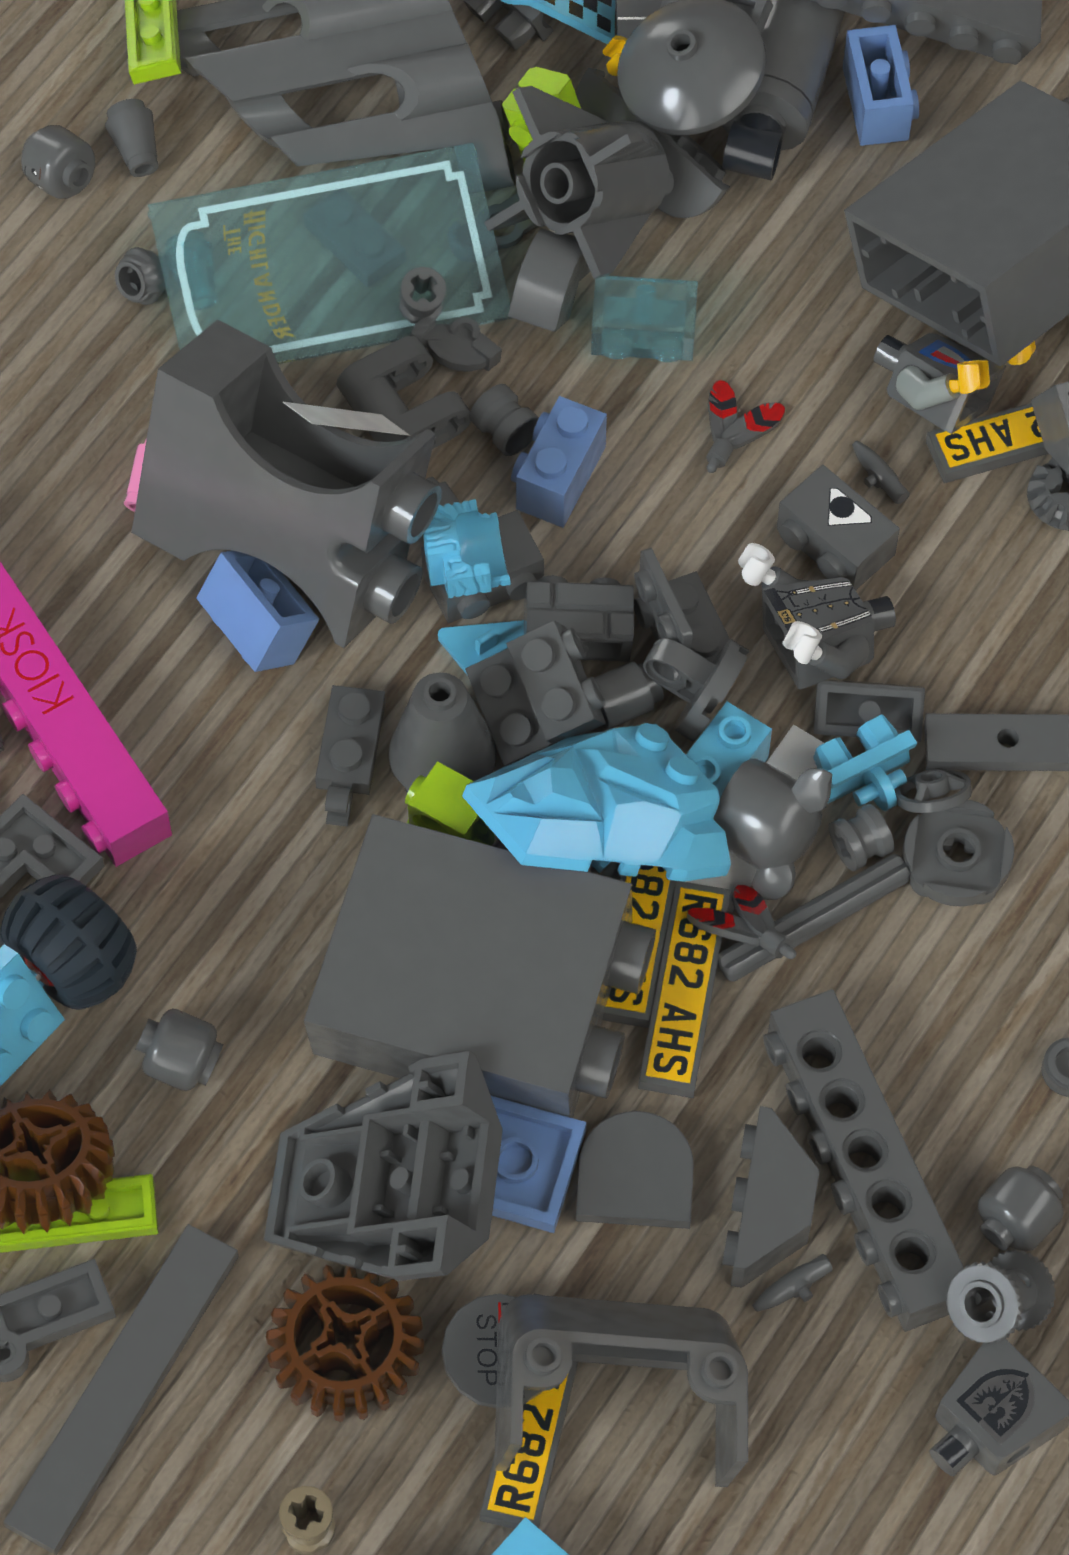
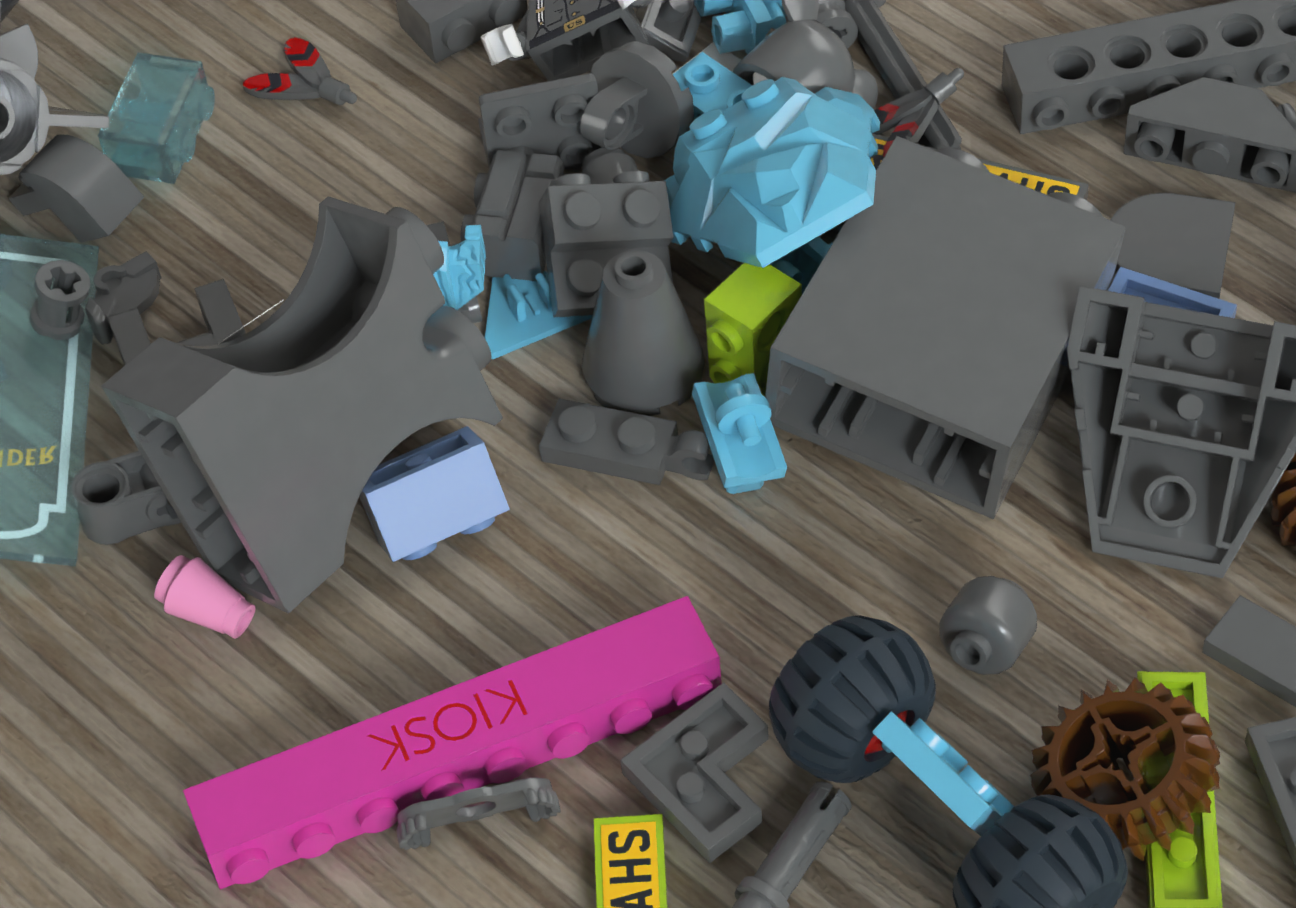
camera: 75 degrees left, 10 degrees down
(339, 830) = (739, 433): none -> medium azure hips
(504, 419) = (241, 254): dark grey wheel -> none
(560, 460) = (287, 195): medium blue brick -> none

